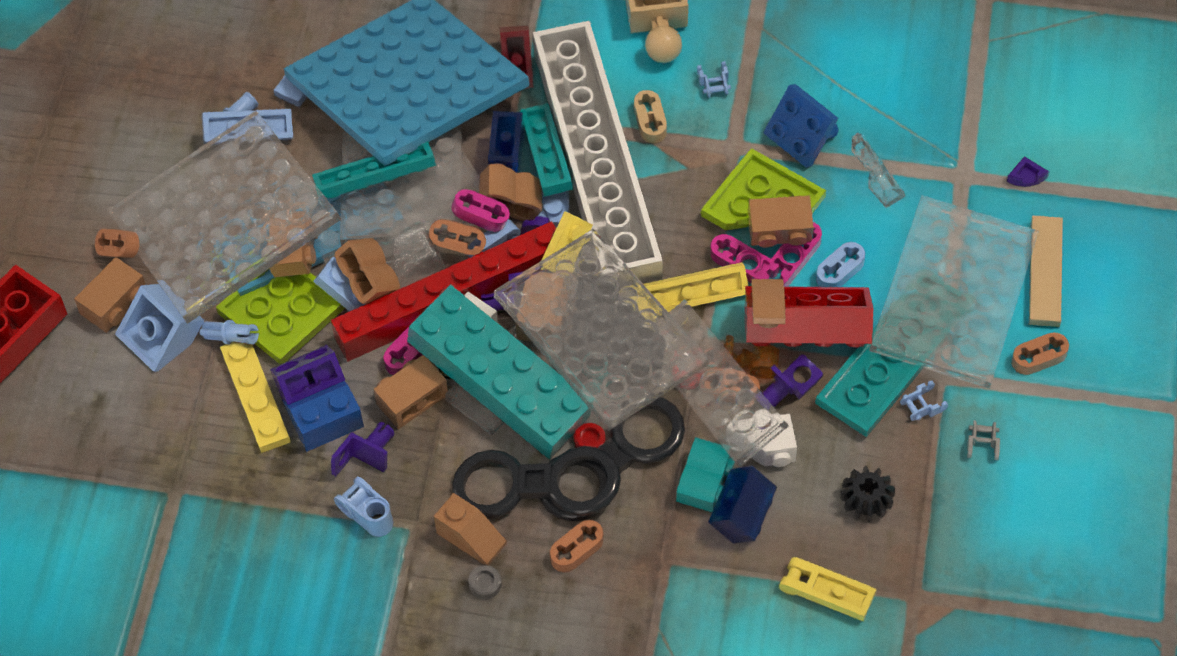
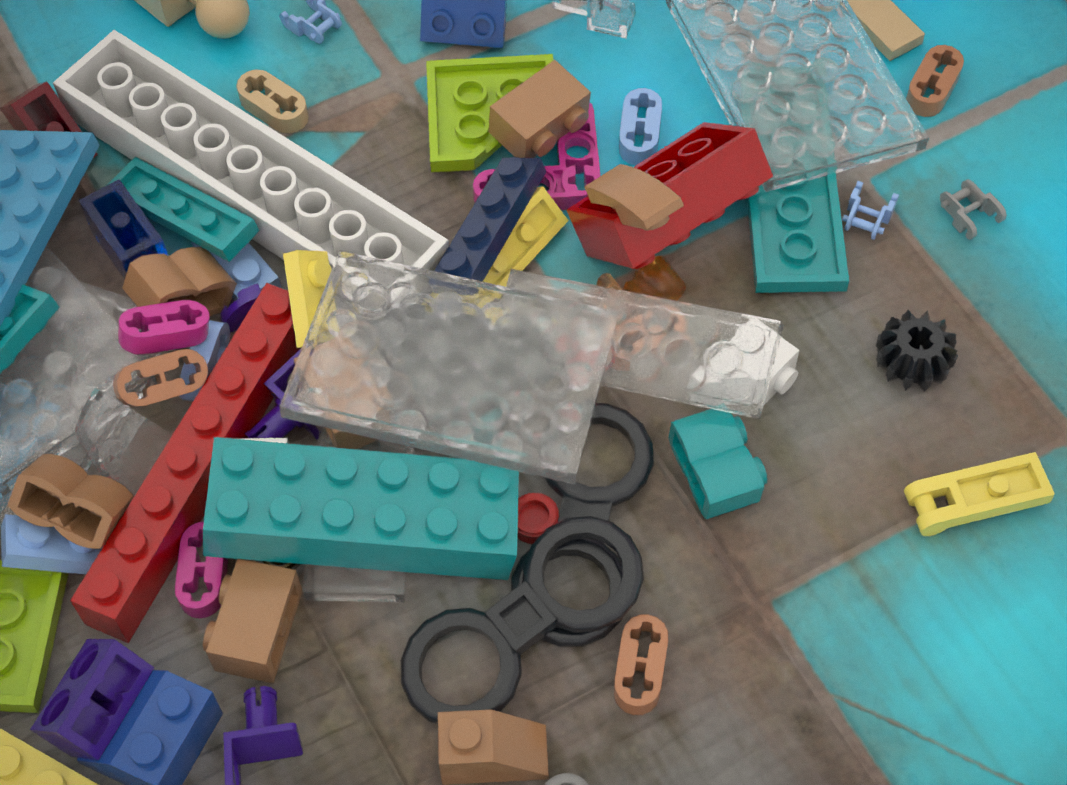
camera: 40 degrees left, 0 degrees up
(697, 265) = (492, 218): none -> dark blue plate
(742, 504) = (799, 463): clear blue brick -> none
(785, 381) = (711, 289): dark purple bracket -> none

